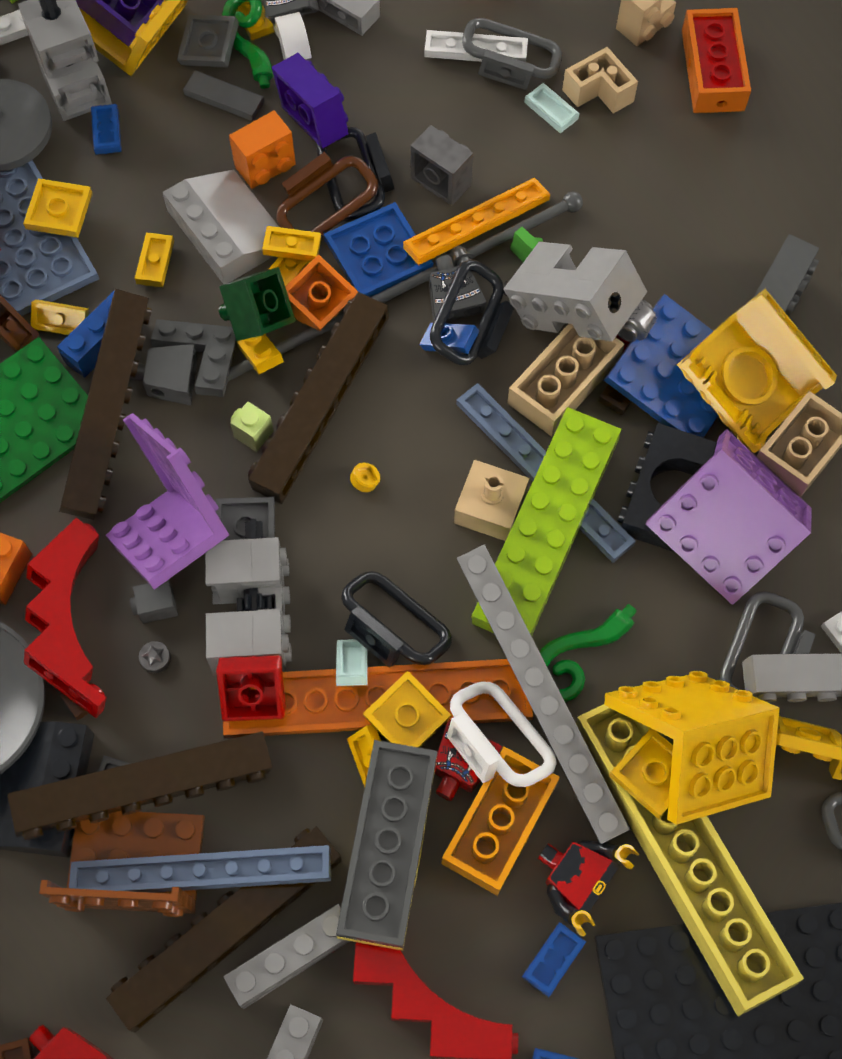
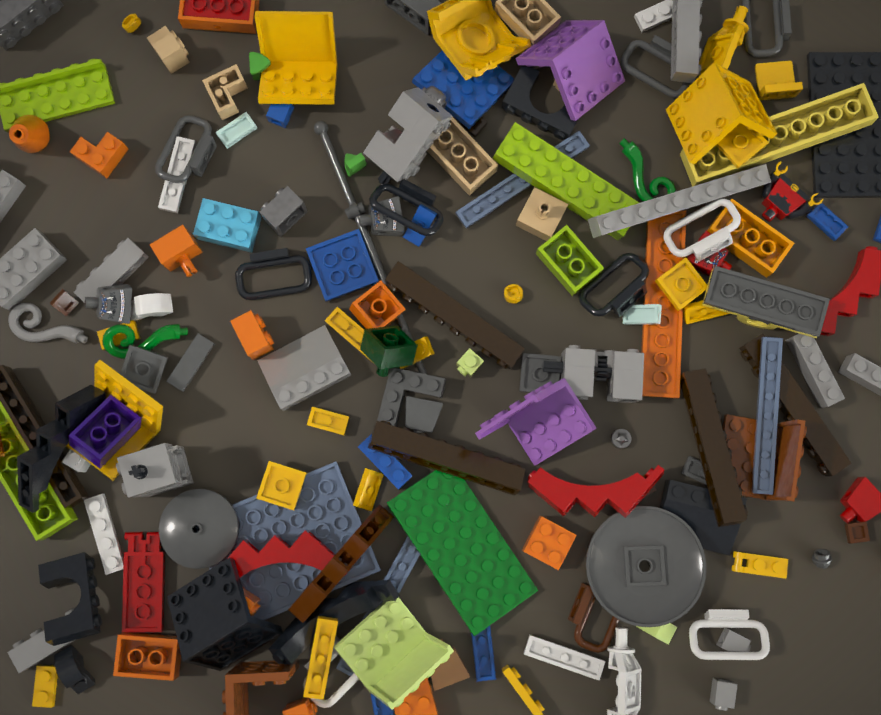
camera: 85 degrees left, 15 degrees up
(106, 129) = (210, 450): blue plate -> none
(153, 604) = (588, 441): dark grey brick -> none
(236, 677) = (660, 374): red brick -> none
(291, 243) = (334, 322): yellow plate -> none
(311, 100) = (216, 296): dark purple brick -> none
(316, 175) = (281, 304): reddish brown bar -> none
(370, 52) = (177, 250): none -> orange brick
(412, 104) = (227, 225): none -> medium azure brick
(423, 545) = (569, 260): none -> lime brick
(476, 221) = (328, 194): light orange tile -> none
(586, 150) = (280, 114): none -> blue brick
(644, 112) = (258, 64): none -> bright green tile
(663, 160) = (300, 57): none -> yellow bracket
(786, 847) = (776, 80): none -> yellow bracket

